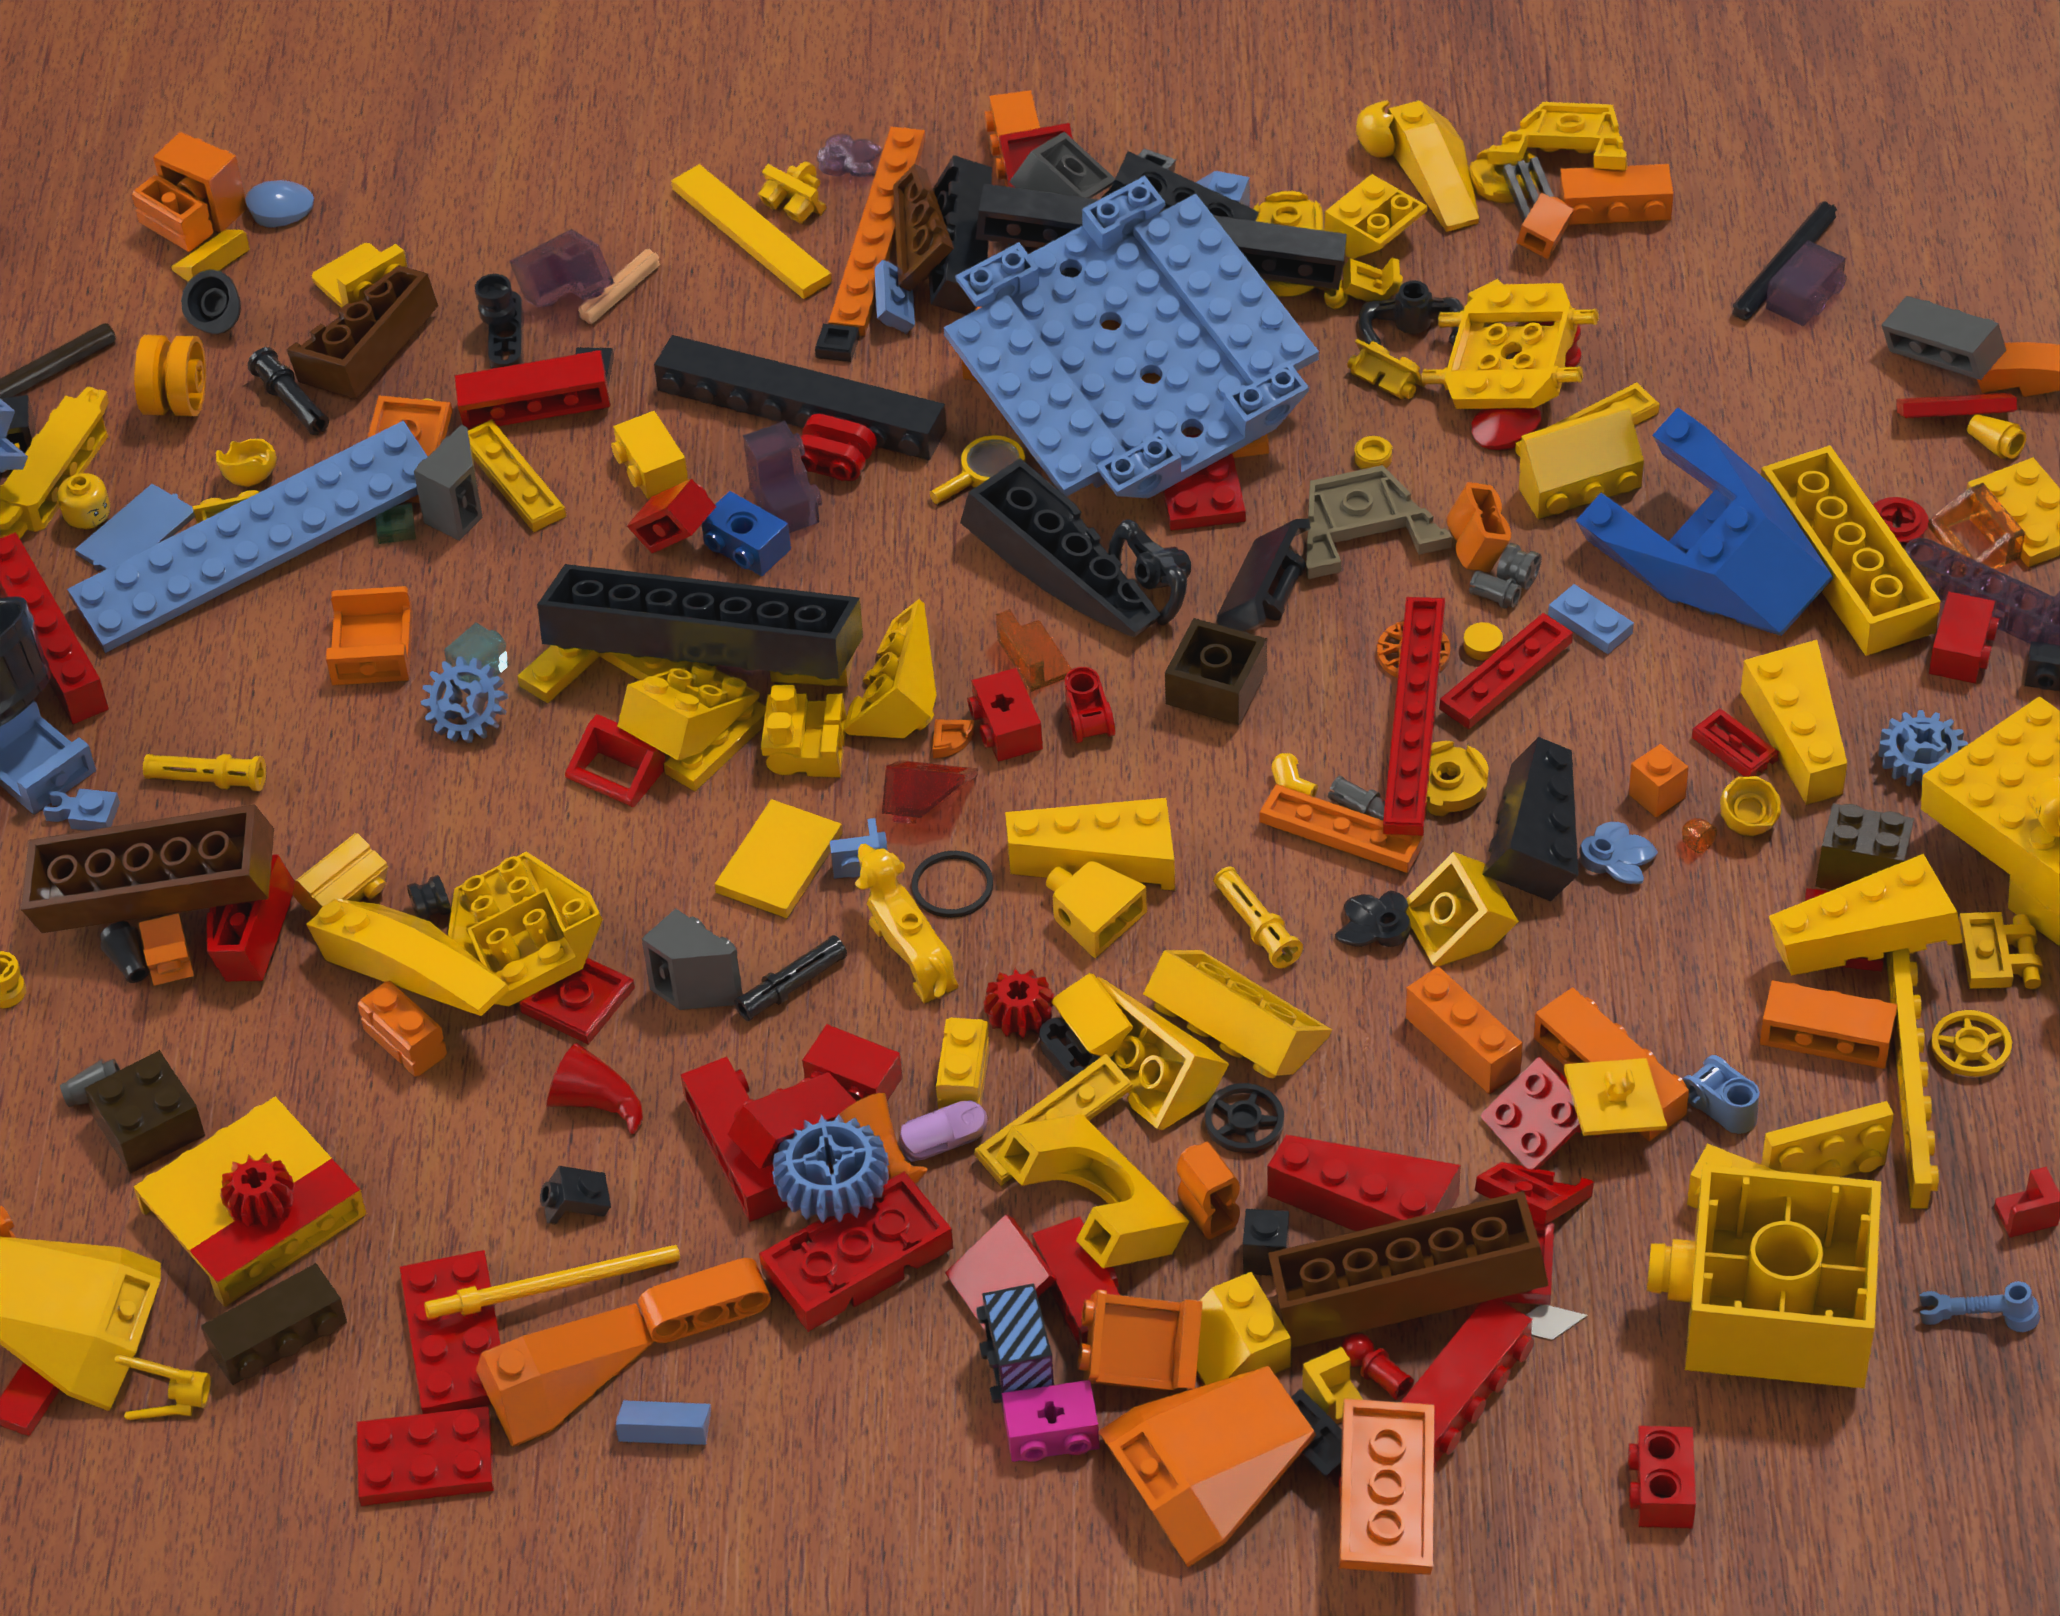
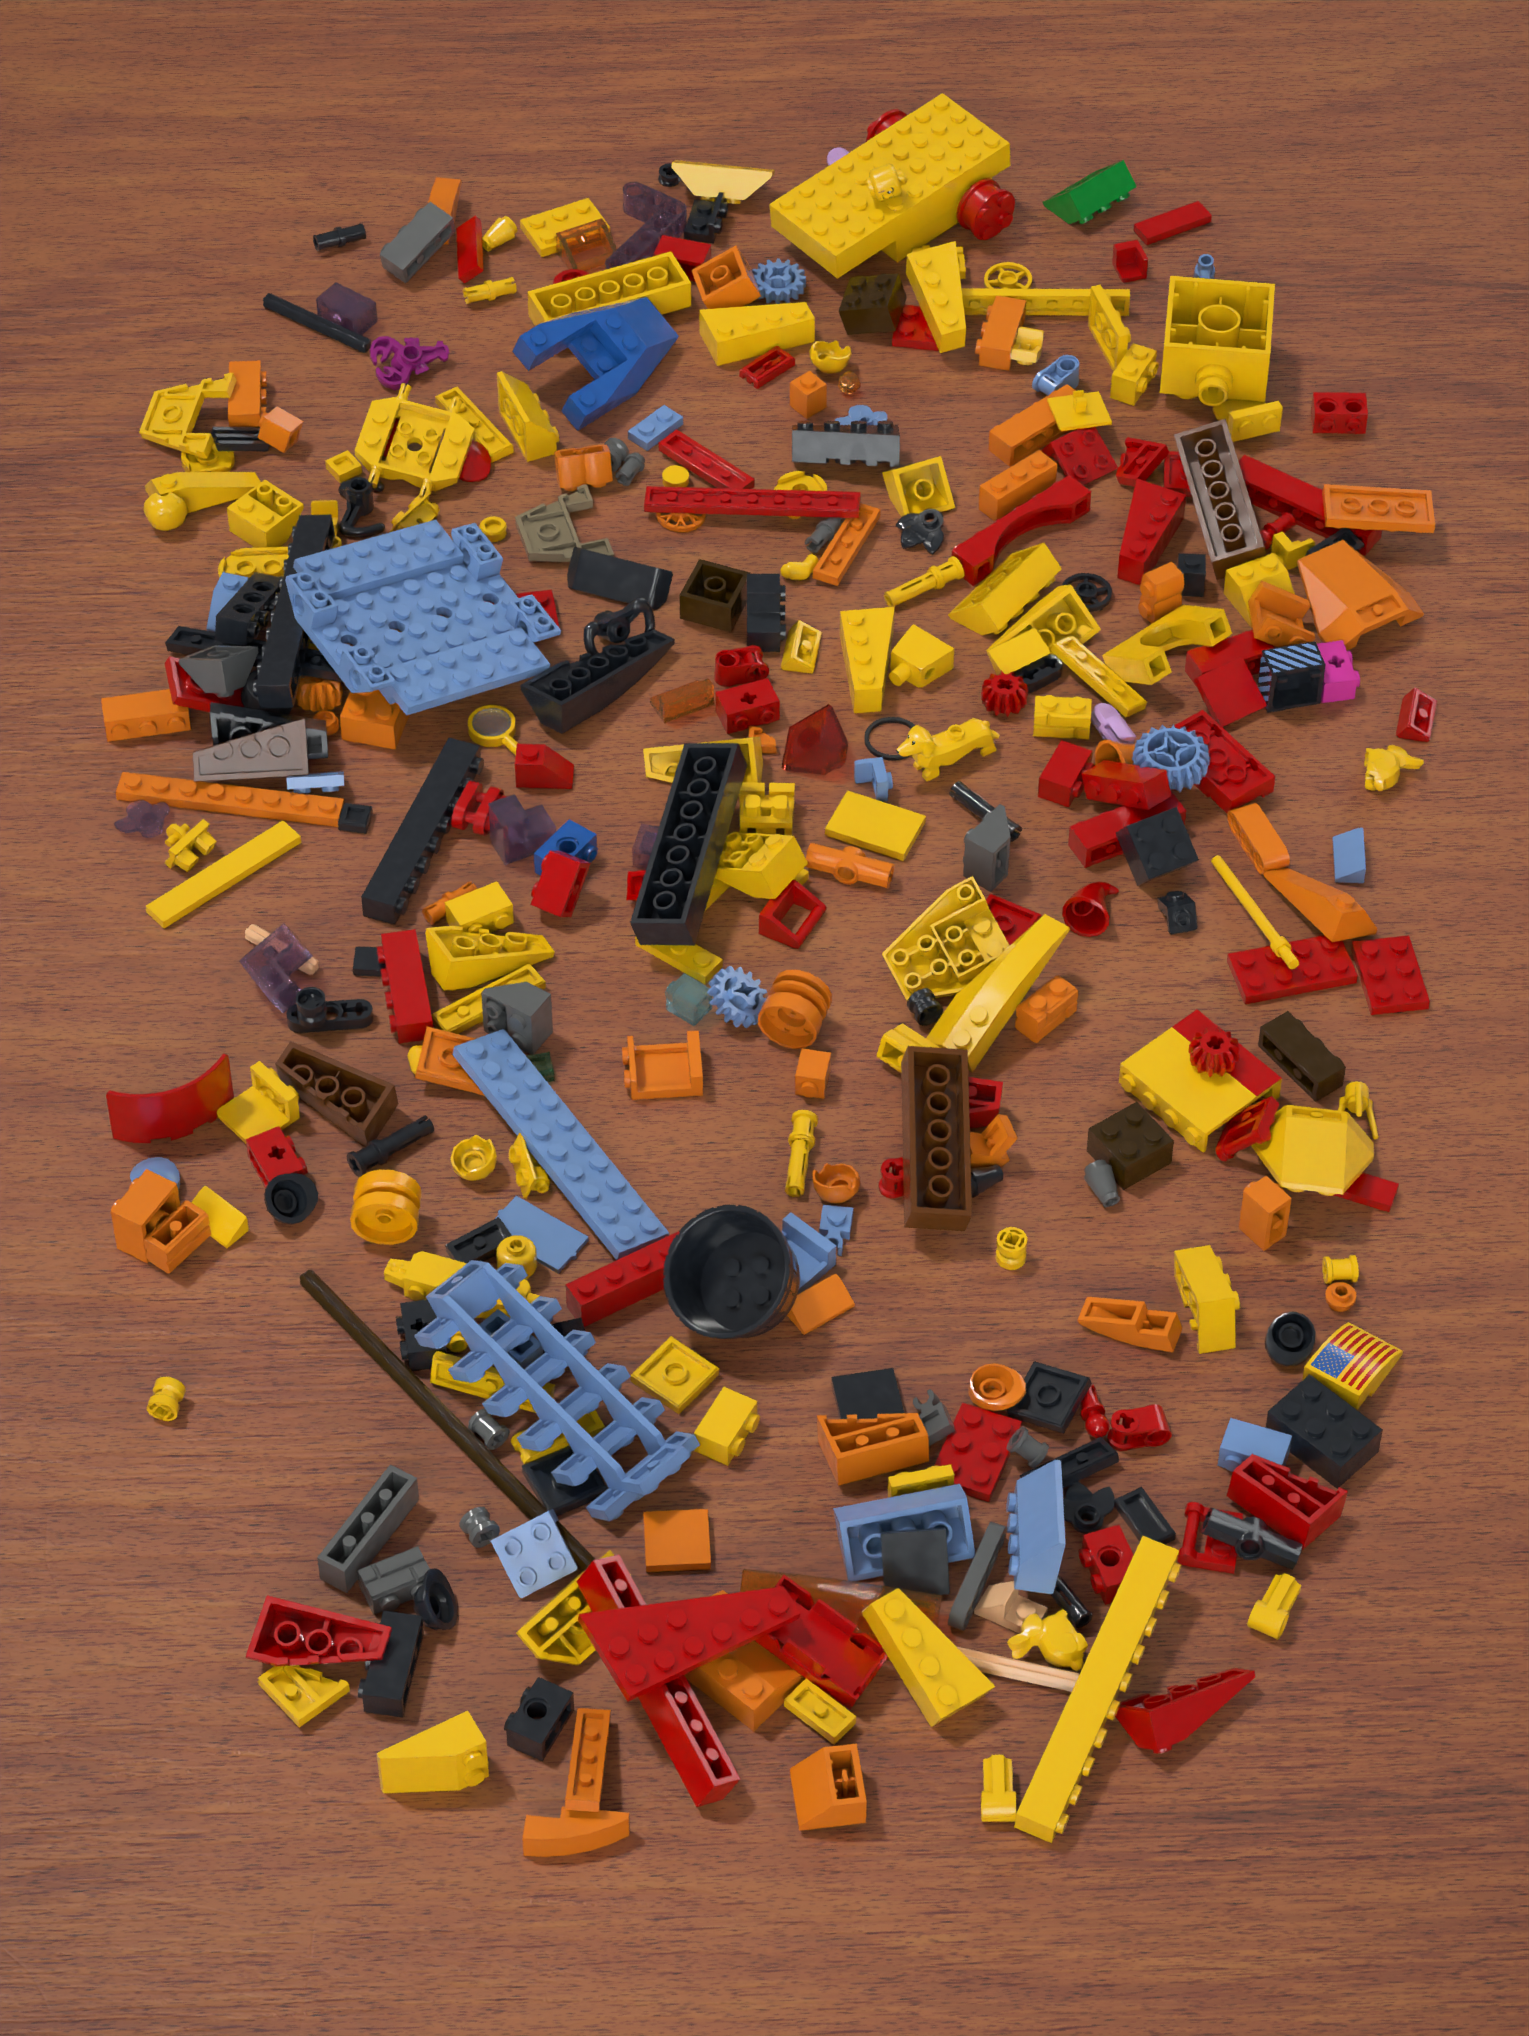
camera: 95 degrees left, 0 degrees up
(119, 473) = (479, 1243): none -> black plate
(136, 1236) = (1247, 1128): none -> red plate
(142, 796) = (836, 1182): none -> orange hair
(276, 293) = (273, 1155): none -> red brick
(330, 780) = (812, 1073): none -> orange brick
(358, 187) = (171, 1112): none -> red panel
(424, 749) = (795, 1009): none -> orange wheel
(576, 453) = (471, 959): none -> yellow wedge
(675, 1156) = (1156, 846): none -> black brick
(681, 433) = (436, 911): none -> orange pin
(697, 824) = (850, 865): none -> orange piece
(842, 1476) = (1385, 765): none -> yellow animal
(901, 506) = (542, 768): none -> red slope
(959, 1540) = (1416, 716): none -> red slope
(1130, 780) = (801, 648): none -> yellow slope
(1176, 728) = (765, 611): none -> black brick
(1317, 984) = (1056, 505): none -> red arch
(1645, 1345) = (1249, 418): none -> yellow bracket
(1708, 348) = (405, 359): none -> magenta animal
(1792, 1056) = (1027, 346): none -> yellow bracket
(1869, 430) = (489, 290): none -> yellow pin
(1889, 675) = (726, 281): none -> orange brick
(1968, 271) = (339, 236): none -> black pin

